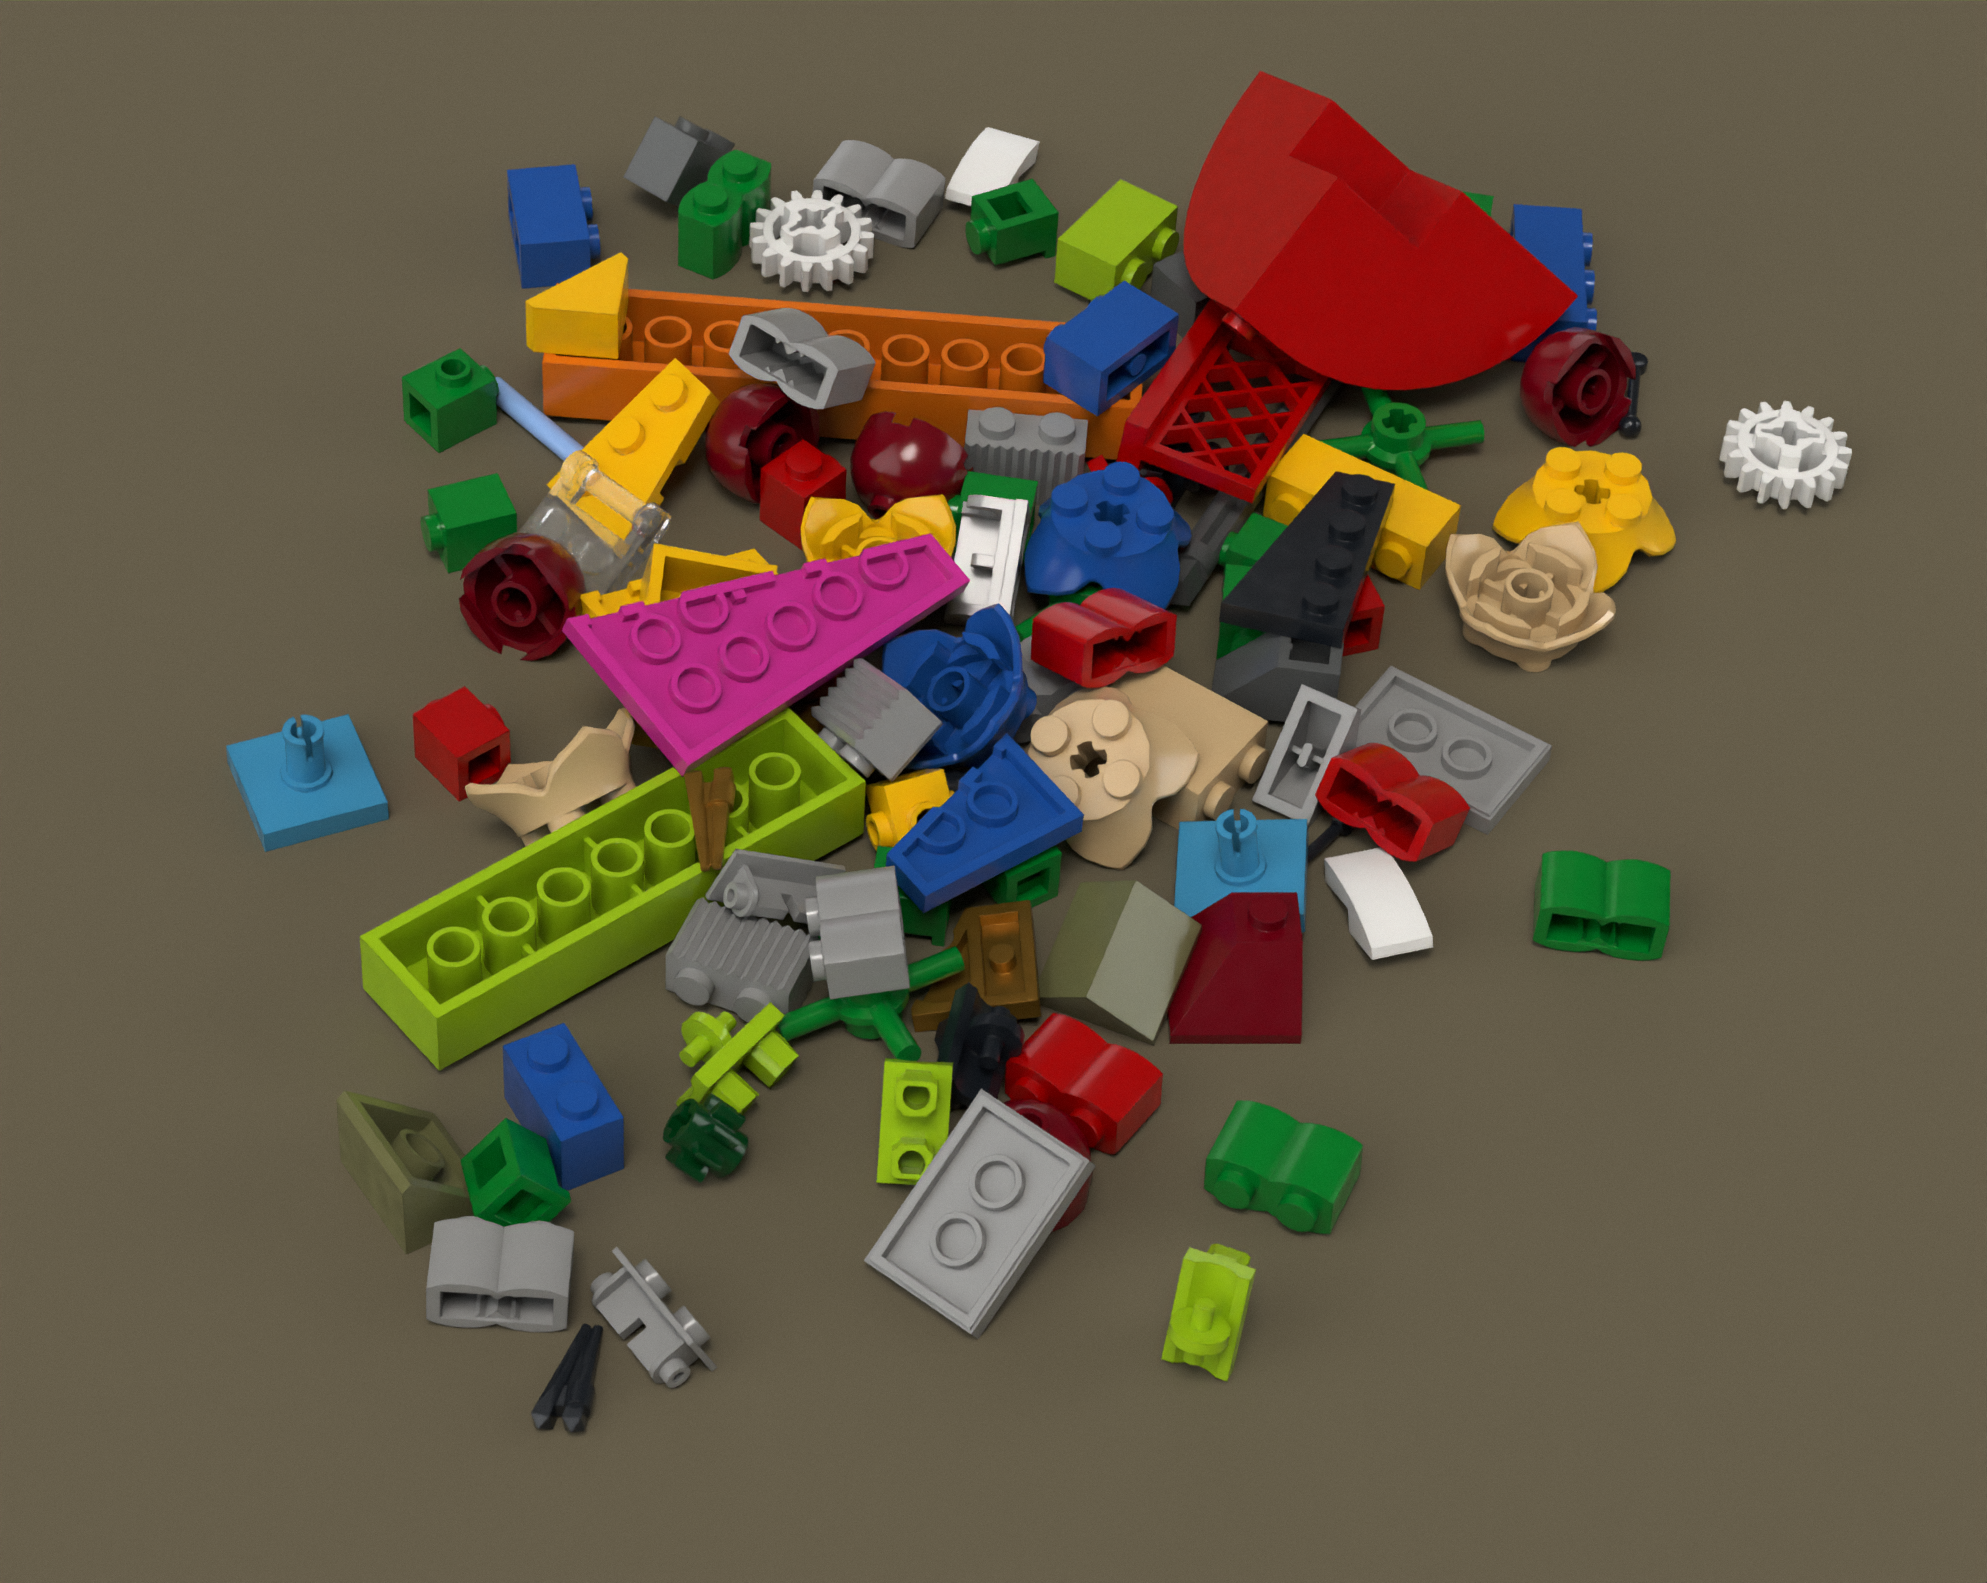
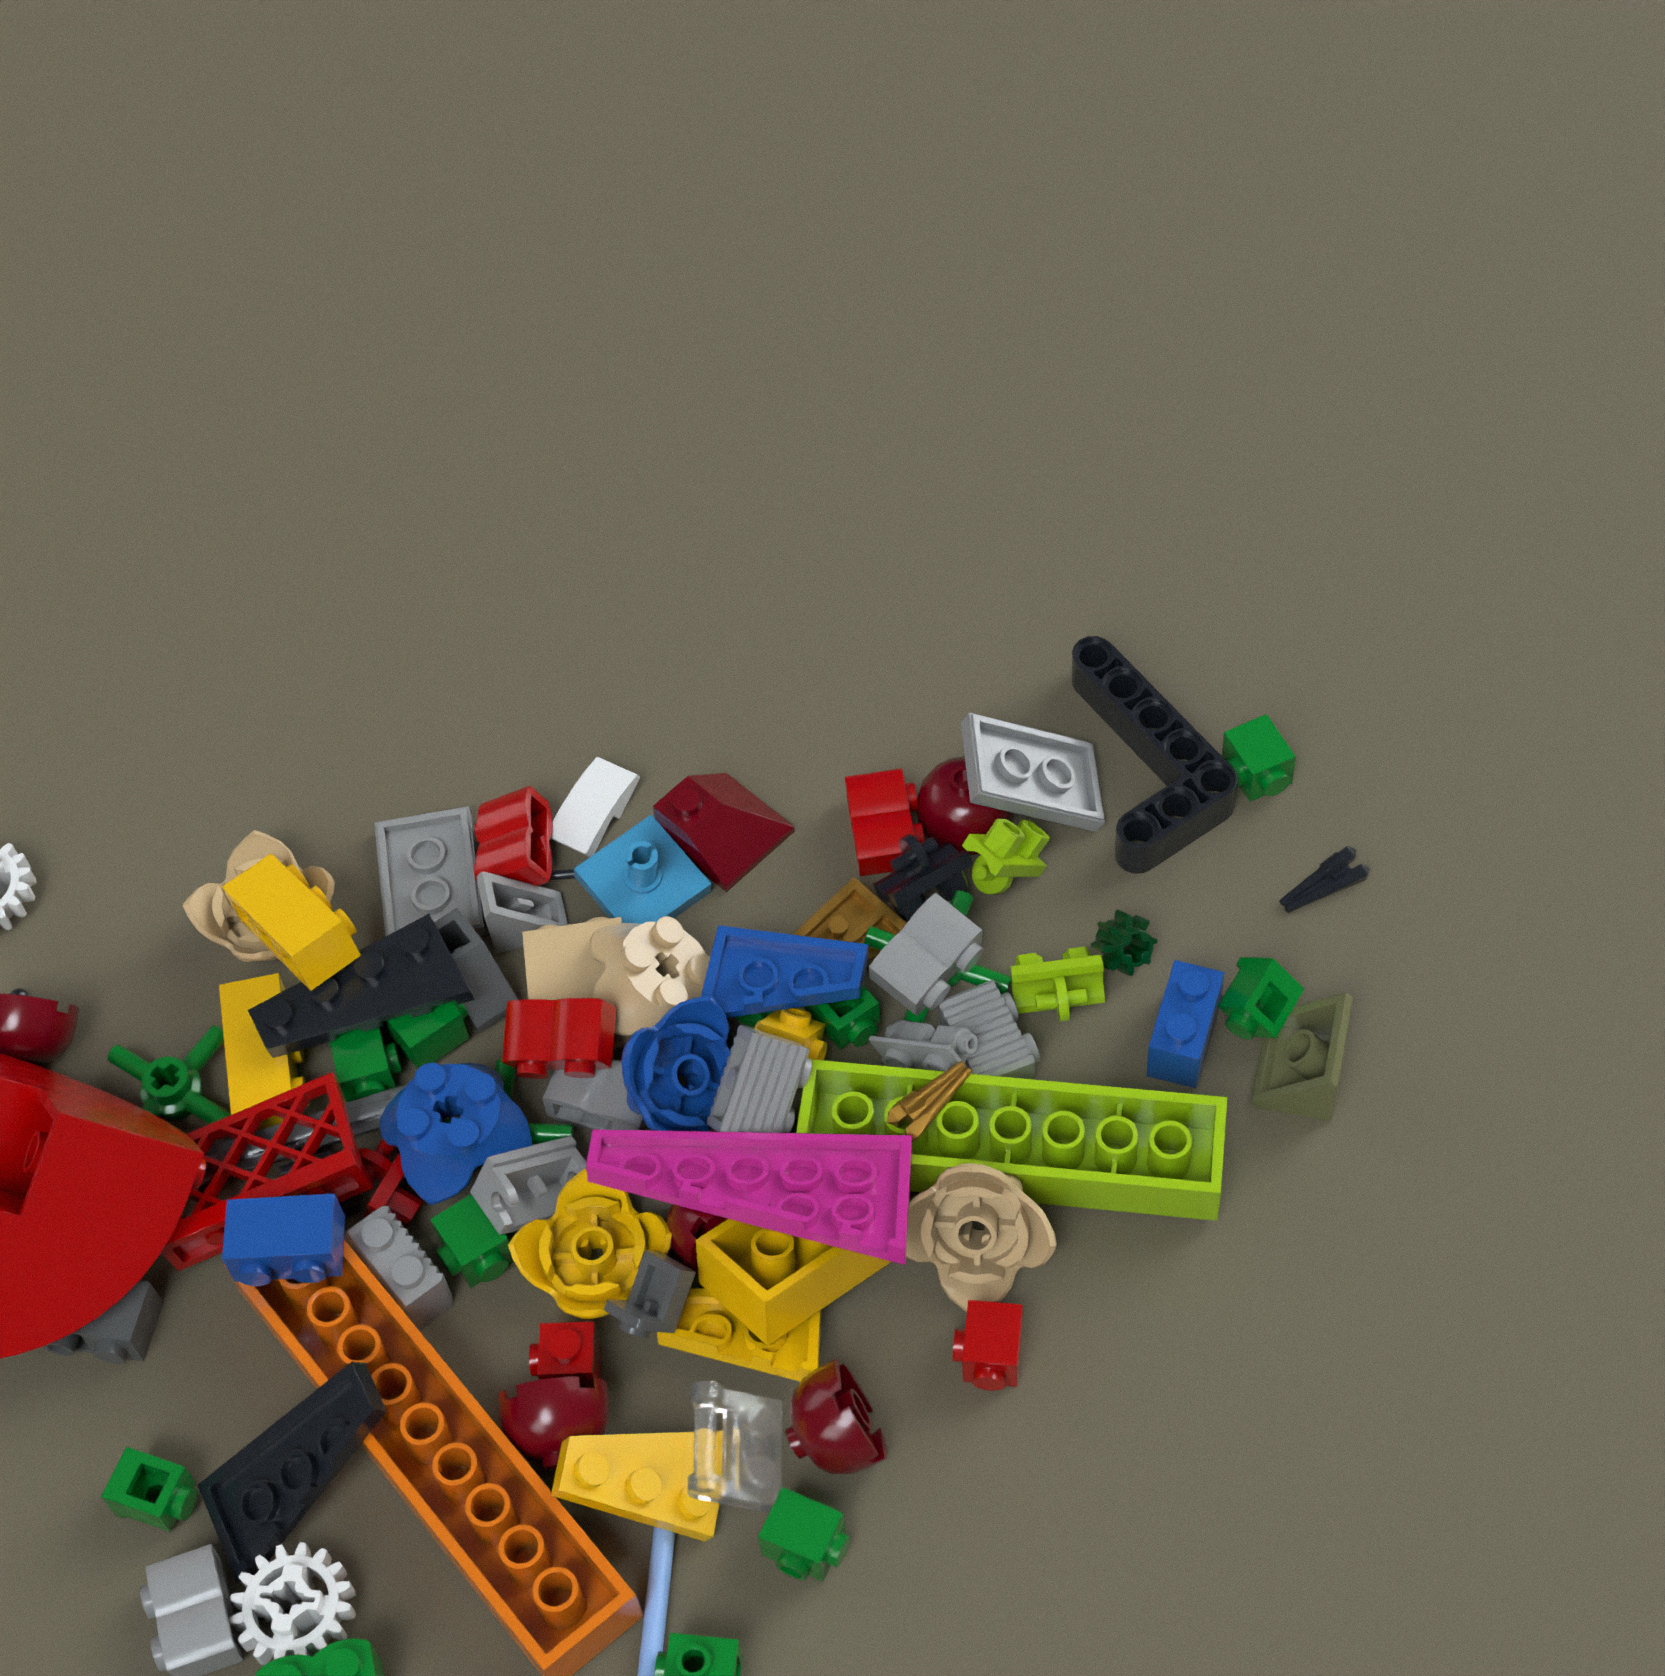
camera: 125 degrees left, 10 degrees up
(307, 781) = (1110, 1413): dark azure tile -> none
(500, 1274) = (1317, 951): light grey brick -> none
(581, 313) = (569, 1584): yellow slope -> none
(670, 1339) = (1246, 889): light grey hinge -> none
(770, 1436) = (1259, 758): none -> green brick
(774, 532) = (654, 1297): none -> dark grey bracket
(802, 358) = (489, 1394): light grey brick -> none
(889, 1366) = (1102, 677): none -> black beam
(904, 463) = (493, 1309): dark red cylinder -> none
(919, 274) = (285, 1469): none -> black wing
(991, 163) = (88, 1568): white slope -> none
(1116, 241) = (117, 1397): lime brick -> none
(1119, 958) = (782, 874): olive slope -> none
(1209, 1309) = (972, 640): lime hips -> none
(1283, 1167) = (837, 698): green brick -> none
(1447, 537) = (293, 920): none -> yellow brick
(1602, 905) = (486, 708): green brick -> none
(1604, 496) = (160, 966): yellow brick -> none

